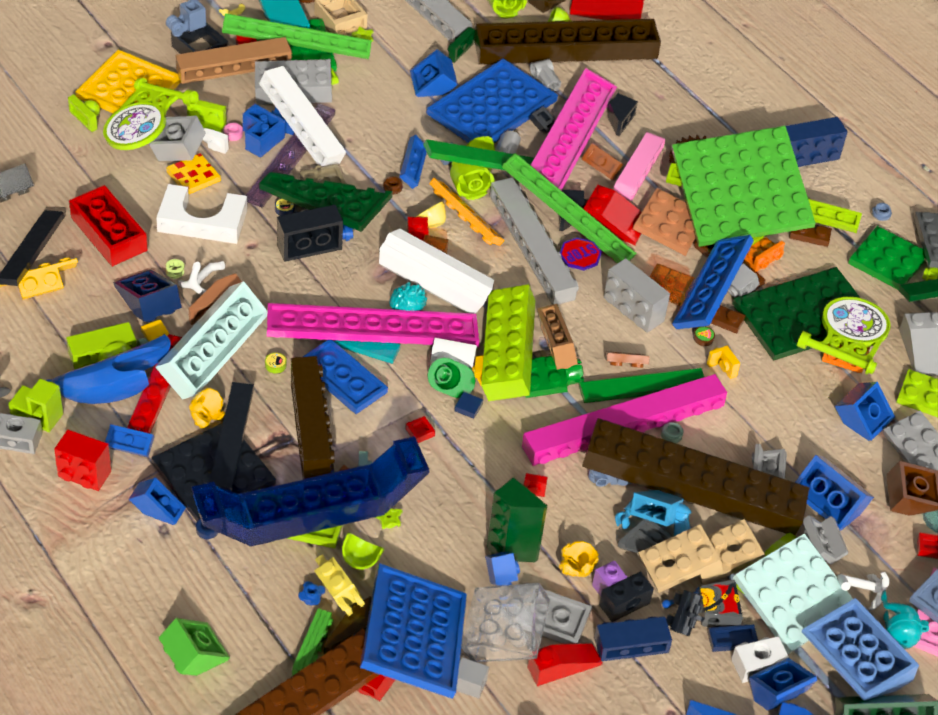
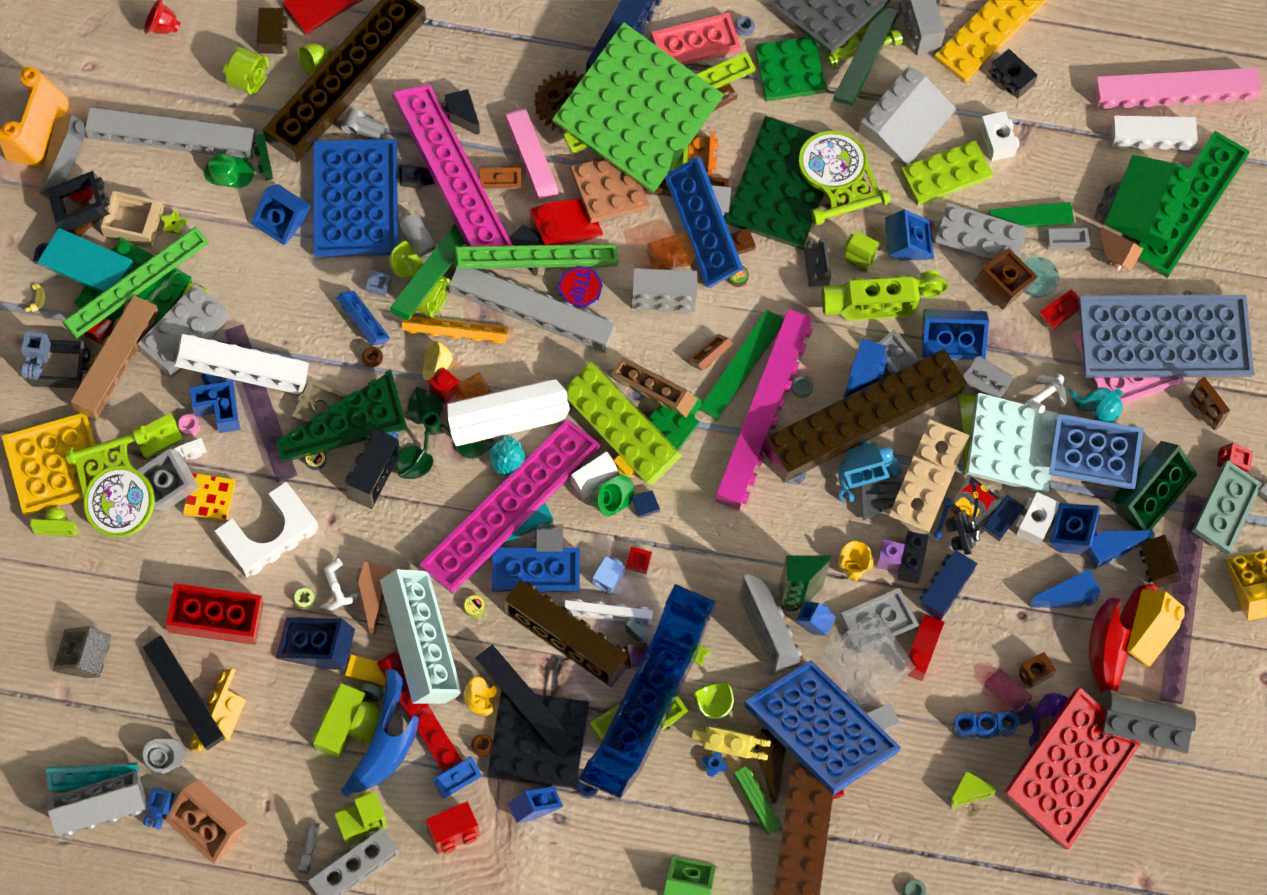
camera: 45 degrees left, 20 degrees up
(171, 438) = (481, 745): none -> reddish brown plate
(348, 258) = (425, 409): none -> dark green plant
(353, 432) = (618, 612): none -> white plate
(372, 358) = (548, 537): none -> brick
(387, 419) = (608, 575): none -> light blue brick
(431, 37) = (229, 171): none -> green piece
(461, 536) = (768, 624): none -> light grey slope
(536, 484) = (763, 528): red plate -> none
(726, 359) = (780, 286): yellow bracket -> none
(730, 439) = (867, 367): none -> blue slope
(773, 373) = (817, 263): none -> dark grey hinge
(798, 422) = (881, 296): none -> lime brick
(814, 385) = (860, 250): none -> lime brick
(837, 192) = (699, 39): none -> coral plate

